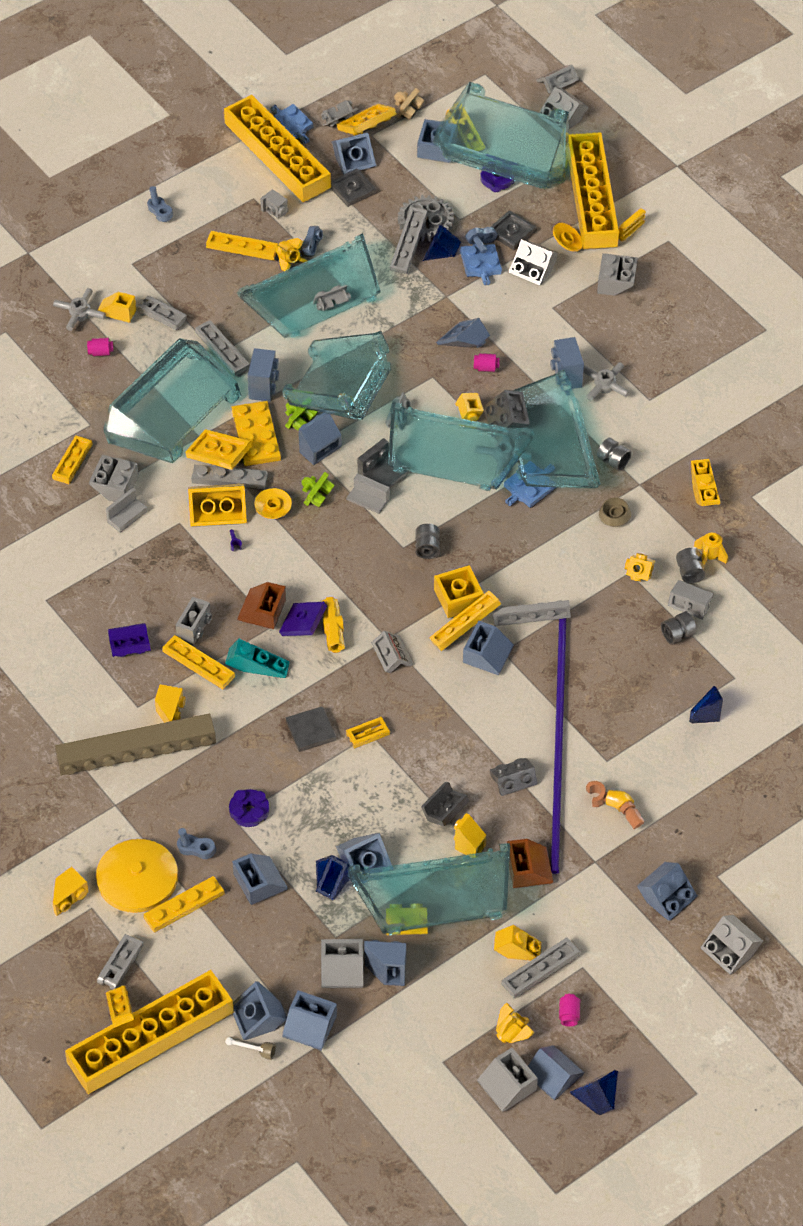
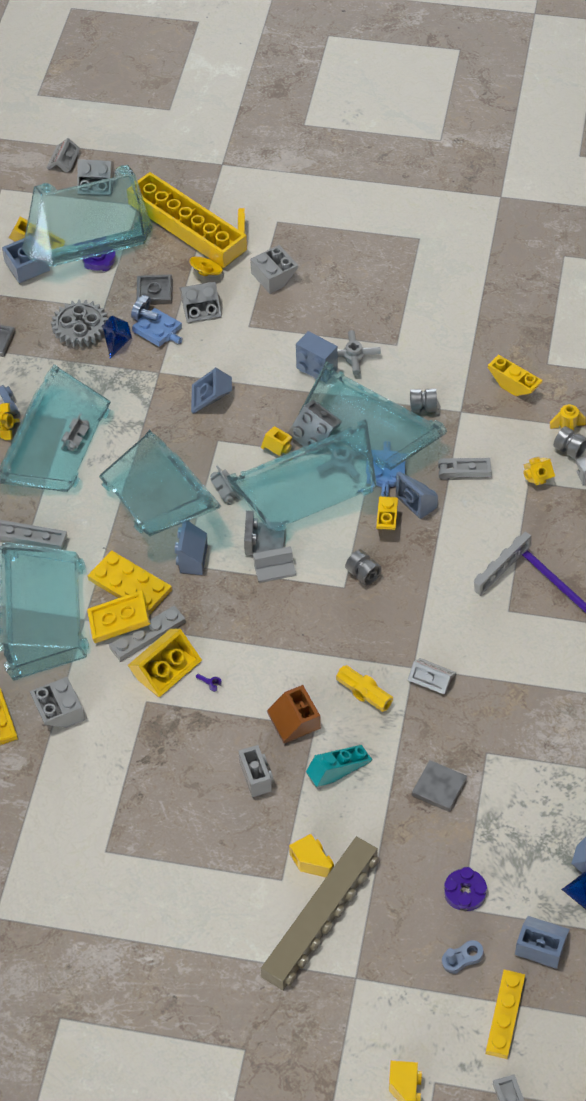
camera: 40 degrees left, 0 degrees up
(125, 511) = (95, 725): light grey panel -> none
(129, 640) = (218, 829): dark purple bracket -> none
(137, 875) = (441, 1022): yellow dish -> none
(198, 662) = (293, 802): yellow plate -> none
(263, 374) = (90, 530): sand blue brick -> none
(273, 503) = (206, 622): yellow dish -> none
(295, 419) = (148, 543): lime hips -> none
(303, 619) = (338, 701): dark purple plate -> none
(314, 496) = (228, 591): lime hips -> none
(368, 735) = (479, 766): yellow tile -> none
(409, 240) = (89, 347): light grey plate -> none
(457, 590) = (432, 588): yellow brick -> none
(465, 620) = (463, 606): yellow plate -> none
(486, 362) = (250, 400): dark pink brick -> none
(487, 648) = (501, 616): sand blue slope -> none
(488, 516) = (387, 513): none -> yellow slope
(526, 519) = (415, 495): none -> sand blue slope
(589, 526) = (464, 467): none -> light grey plate
(615, 512) = (470, 444): dark tan hat -> none

